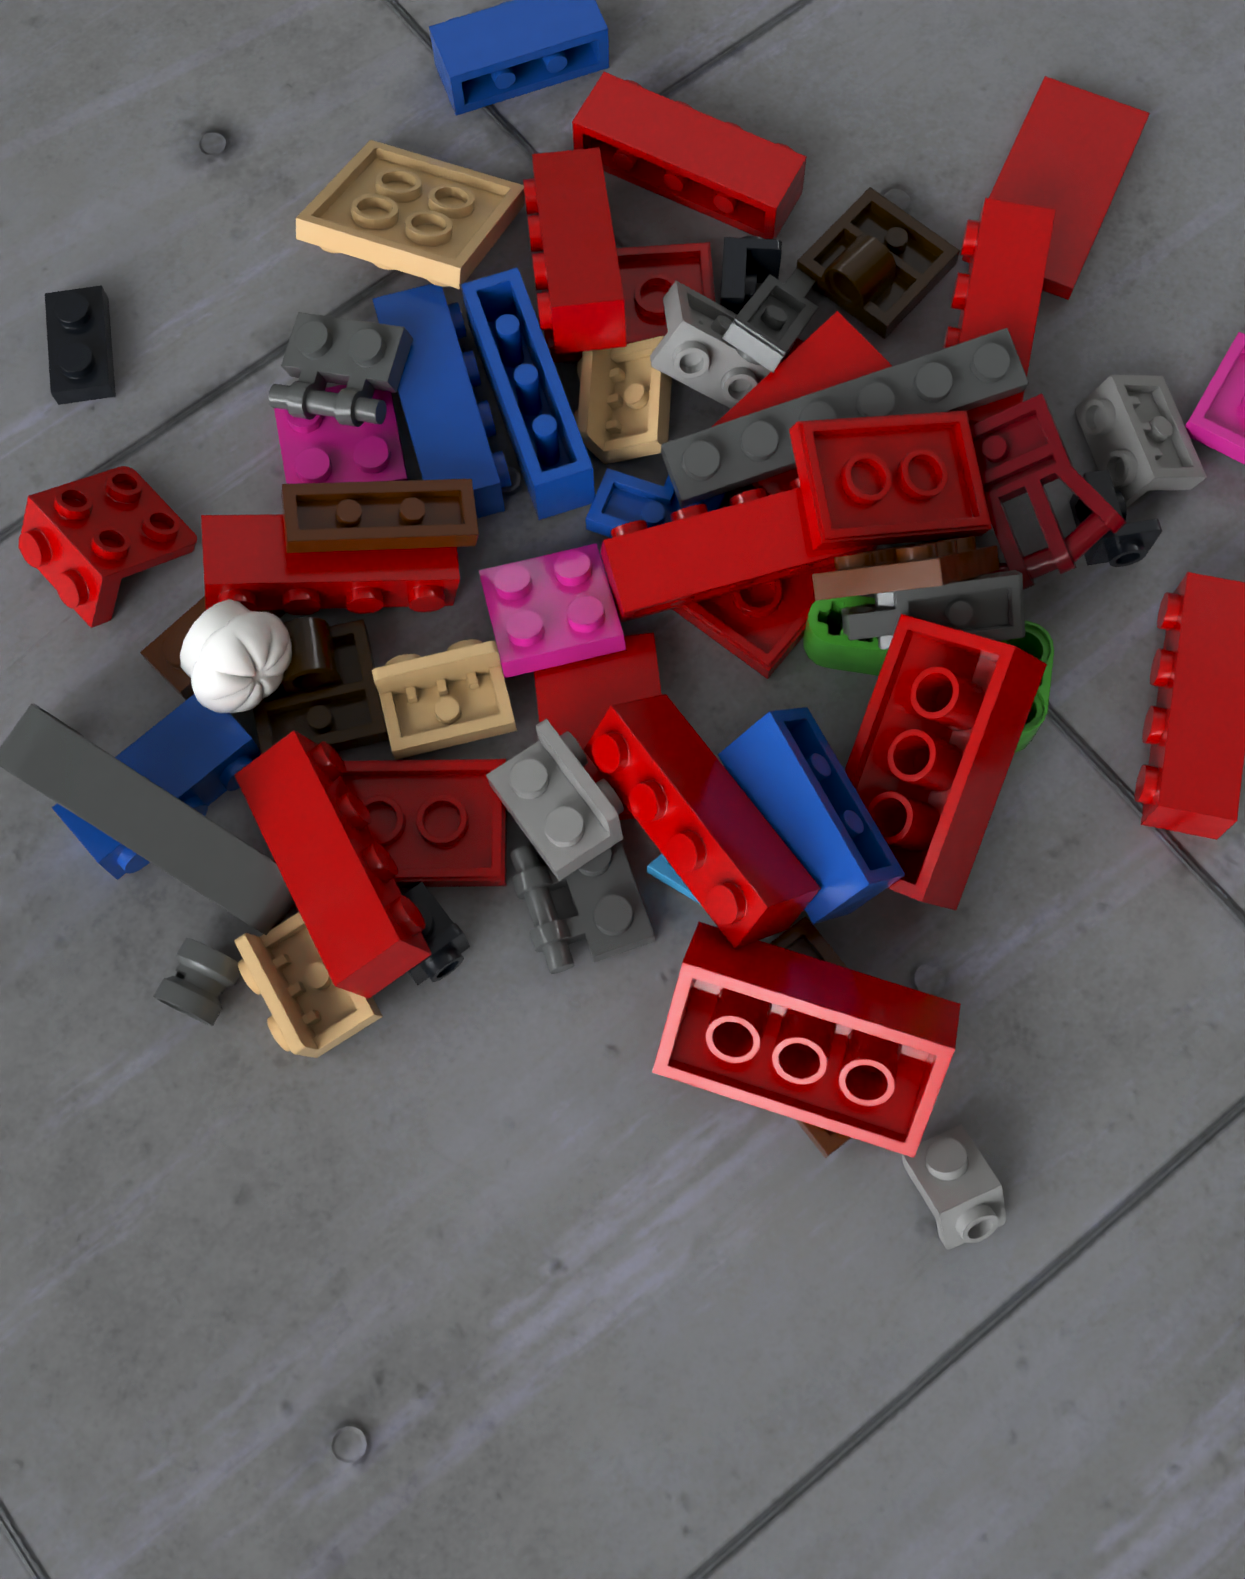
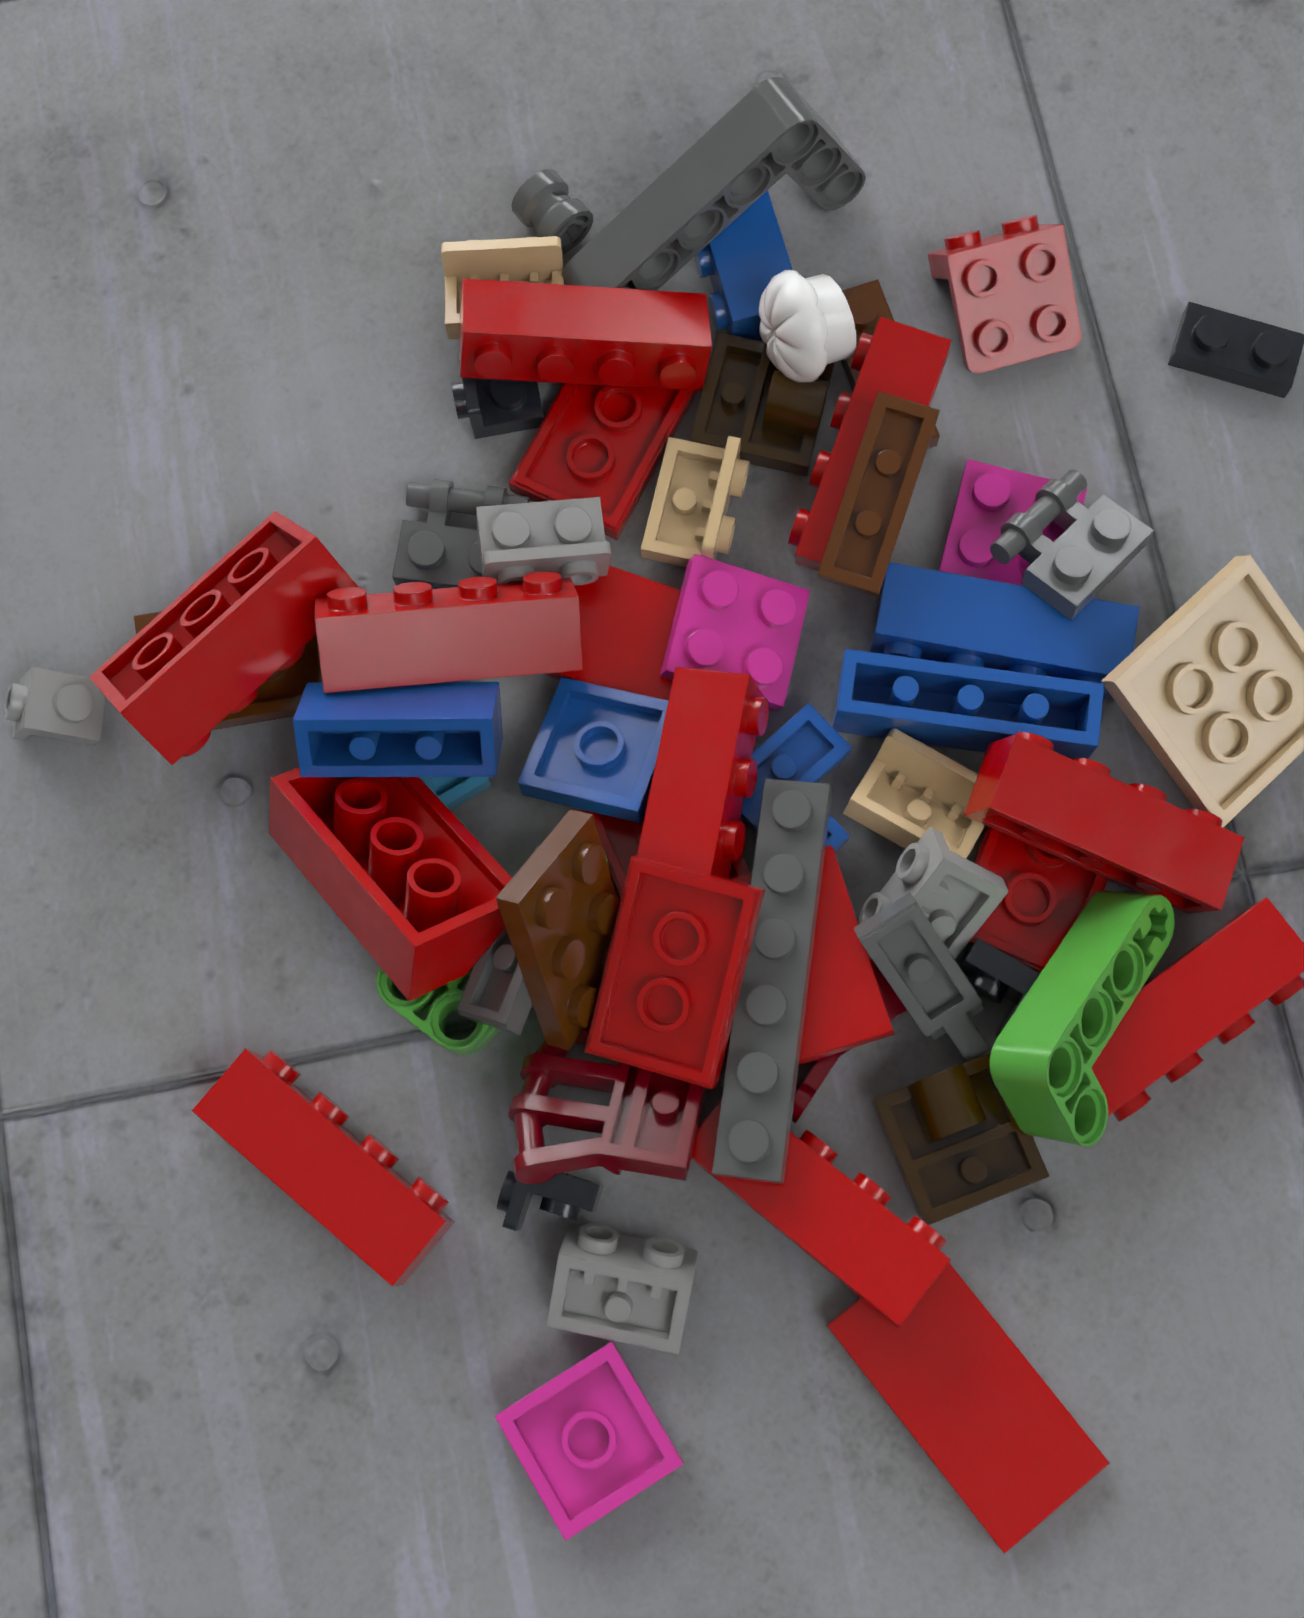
camera: 120 degrees right, 5 degrees up
(722, 658) = (596, 750): none -> blue plate
(734, 203) = (1071, 1013): none -> bright green beam

